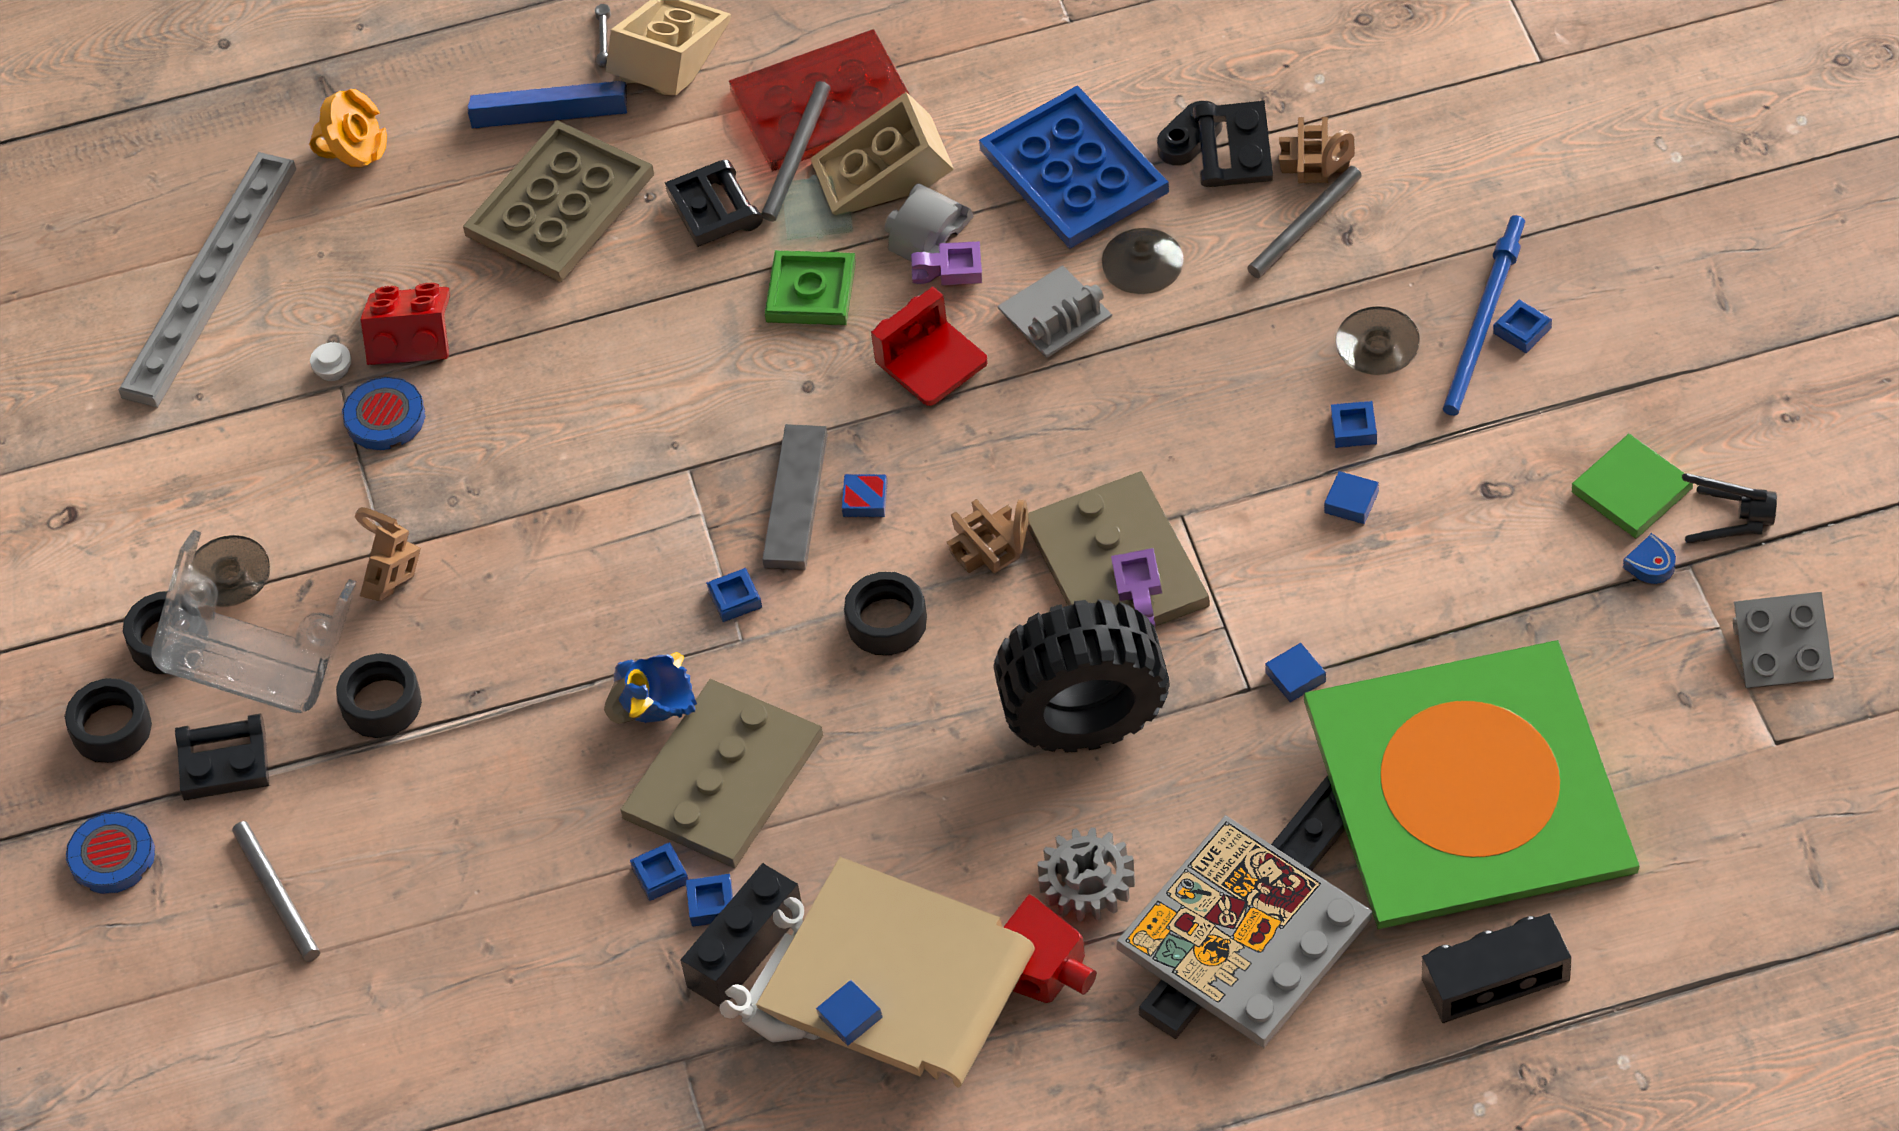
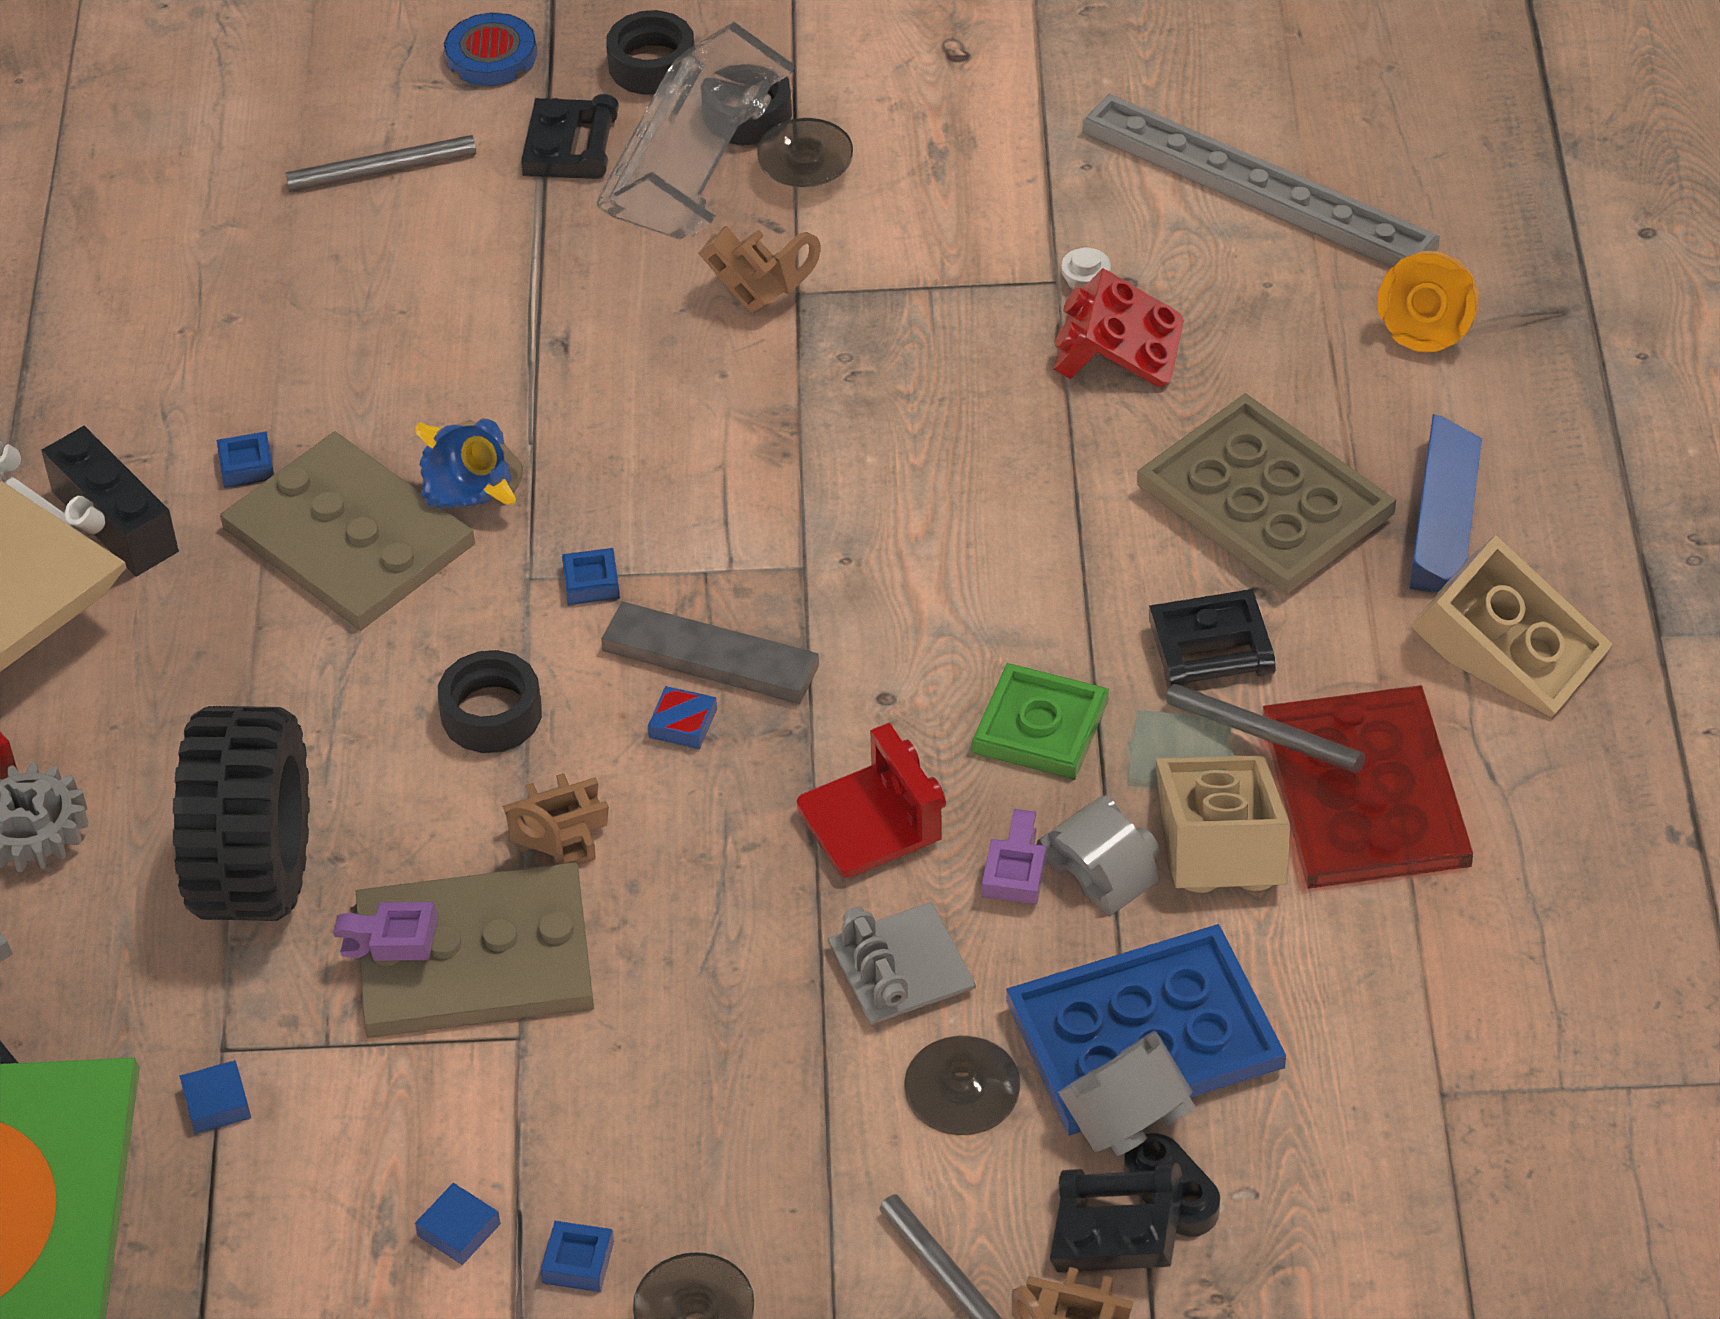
camera: 100 degrees right, 5 degrees down
(373, 669) = (588, 280): black tyre -> none
(383, 413) = (991, 306): tile -> none
(602, 13) = (1597, 586): flat silver hinge -> none
(708, 898) = (187, 493): blue tile -> none
(1152, 139) = (1128, 1095): none -> light grey cylinder

